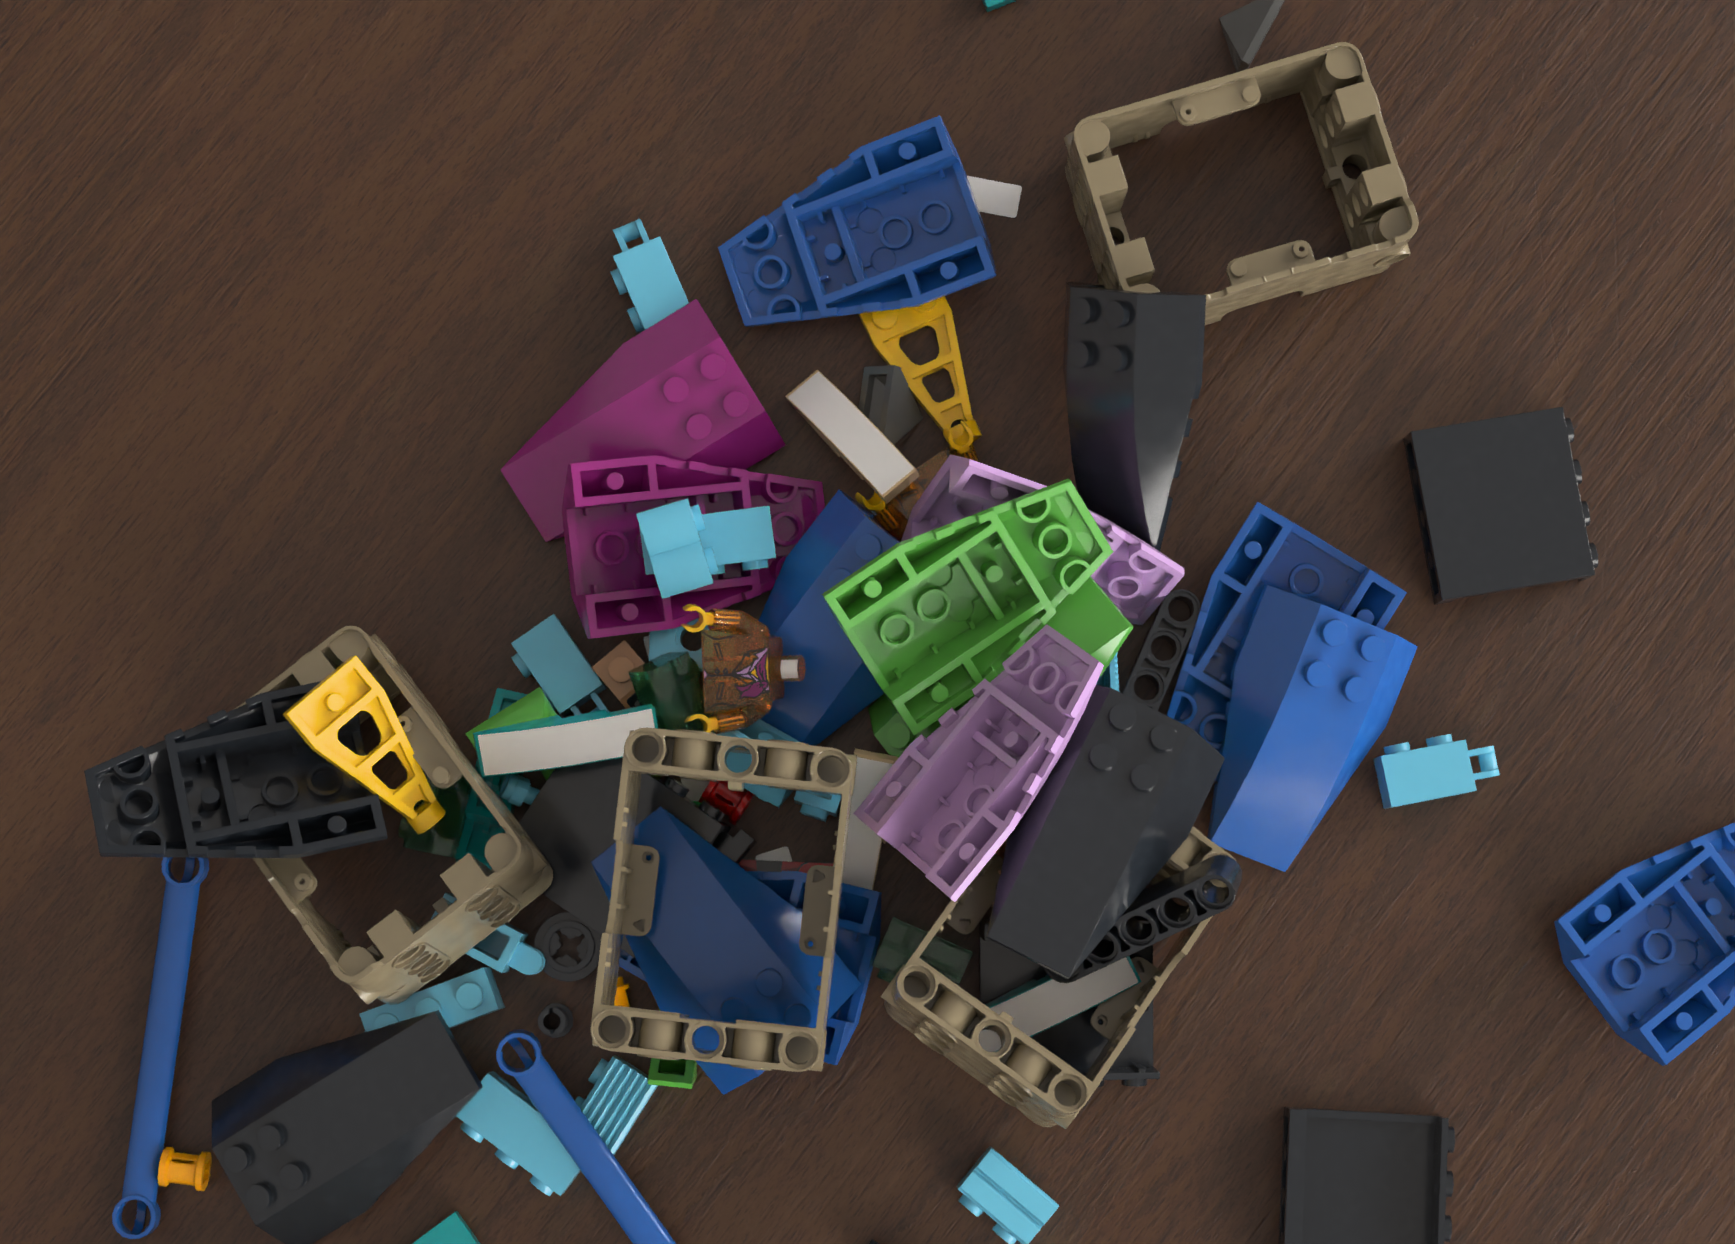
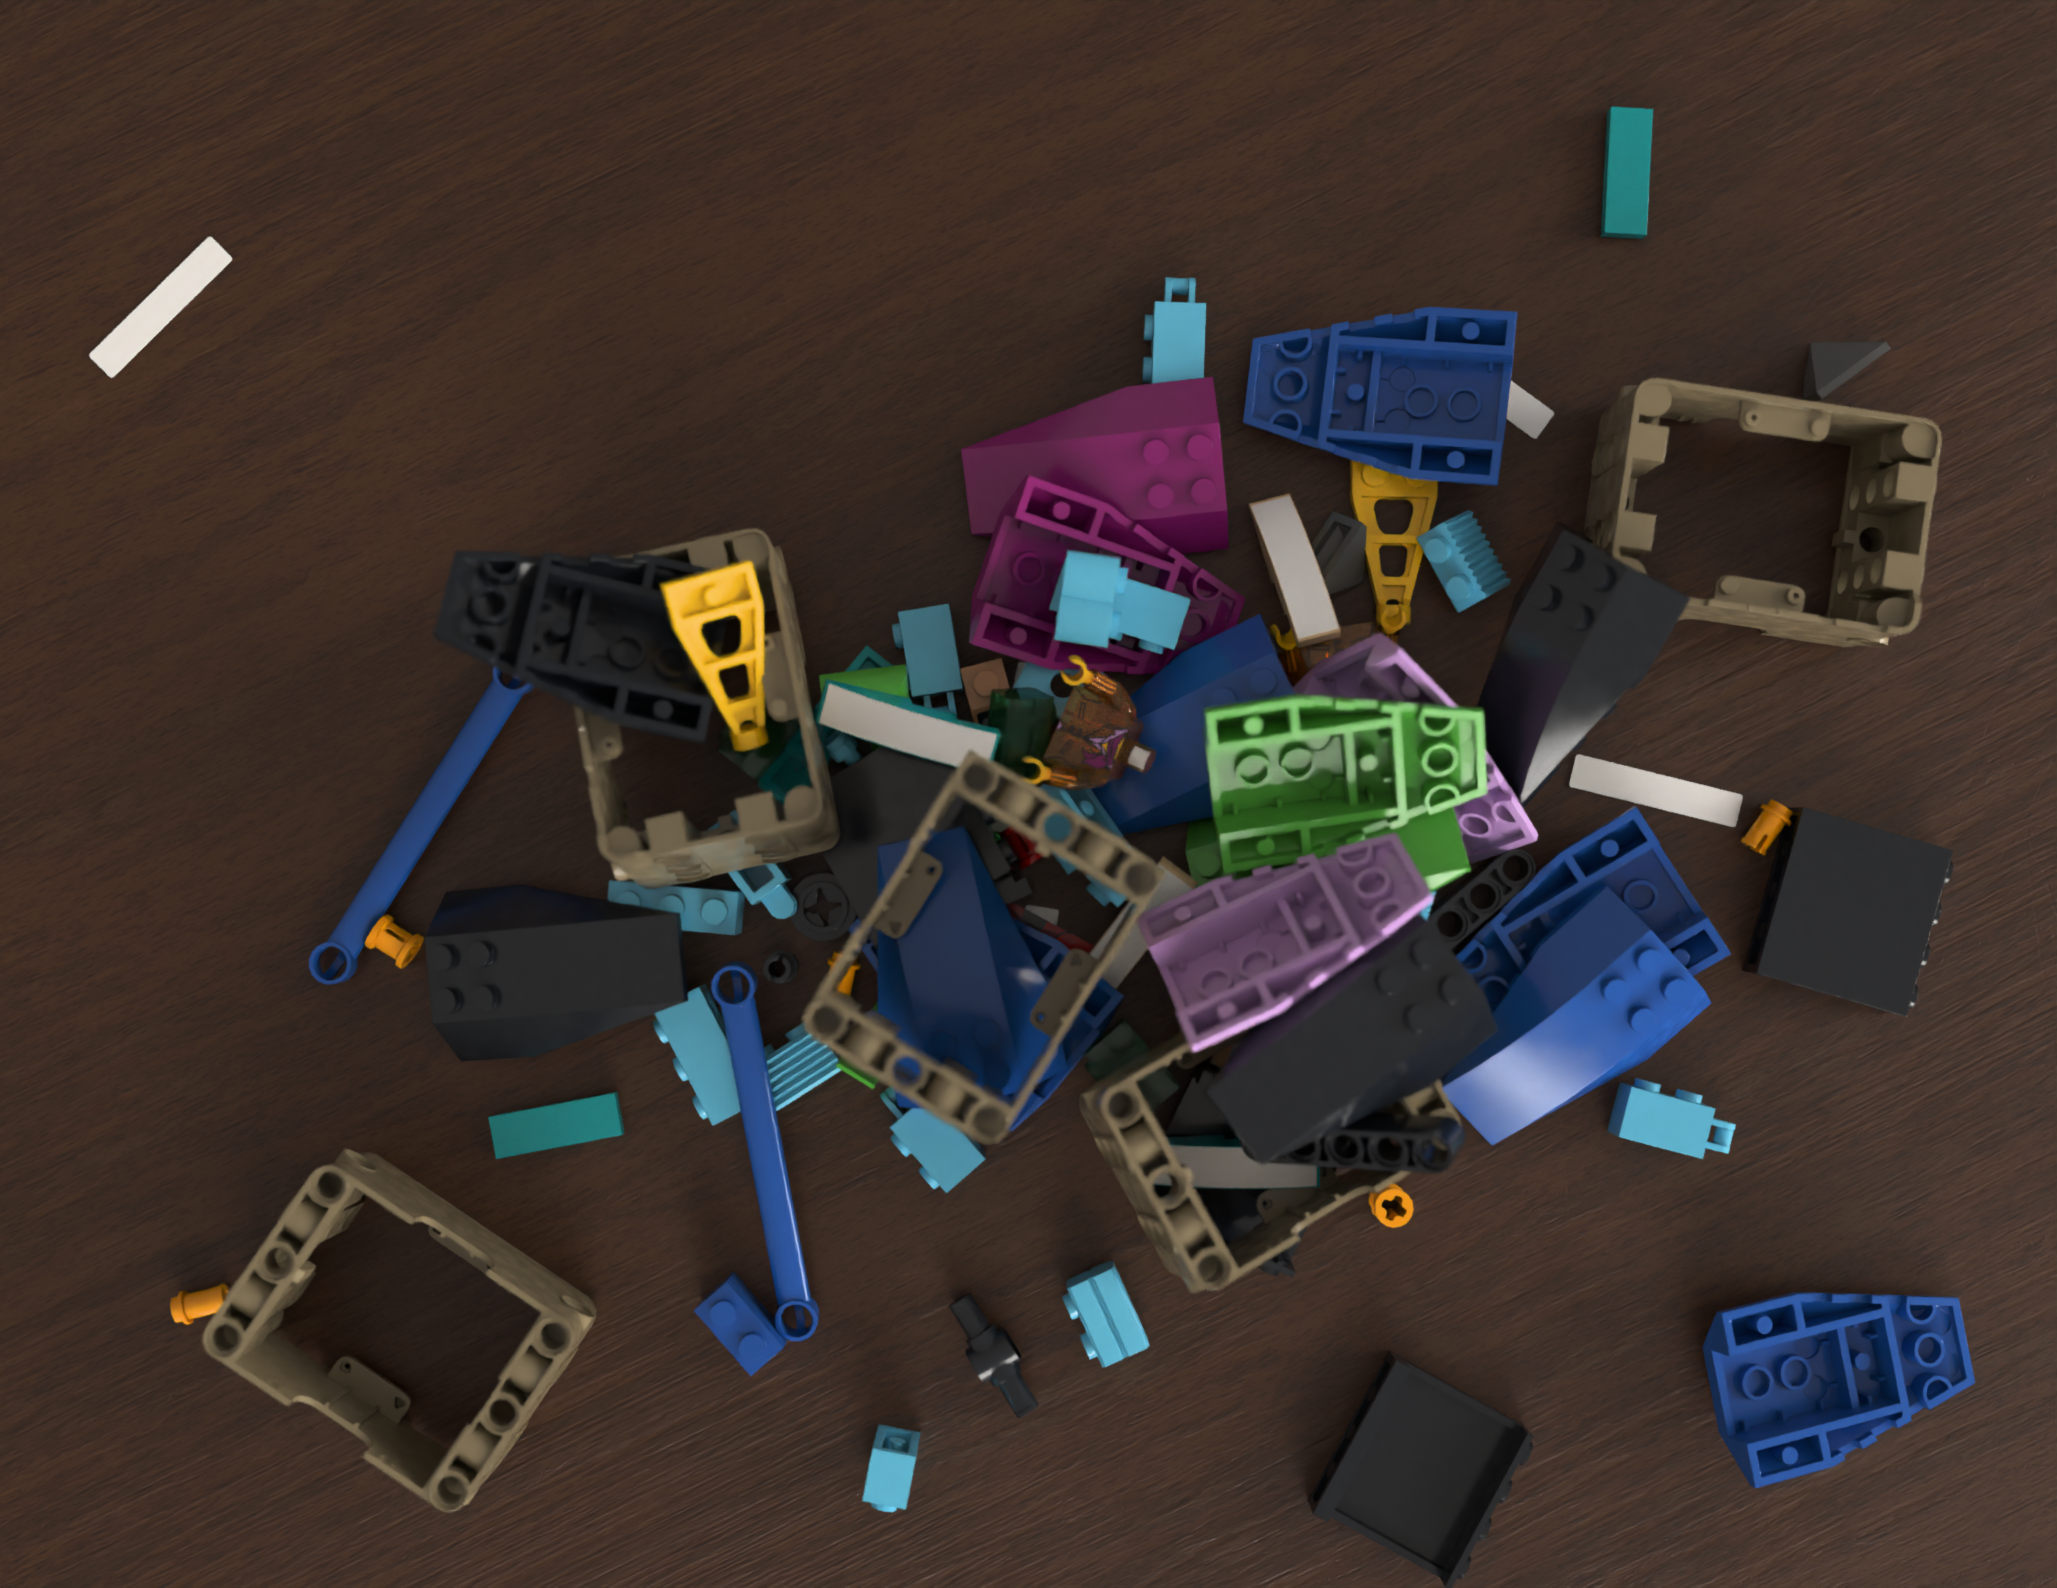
camera: 30 degrees right, 5 degrees up
(771, 1111) = (941, 1148): none -> medium azure brick
(1001, 356) = (1463, 560): none -> medium azure brick
(1225, 958) = (1391, 1217): none -> light orange bush
(1276, 479) = (1655, 790): none -> white sticker
(1390, 464) = (1767, 826): none -> light orange pin

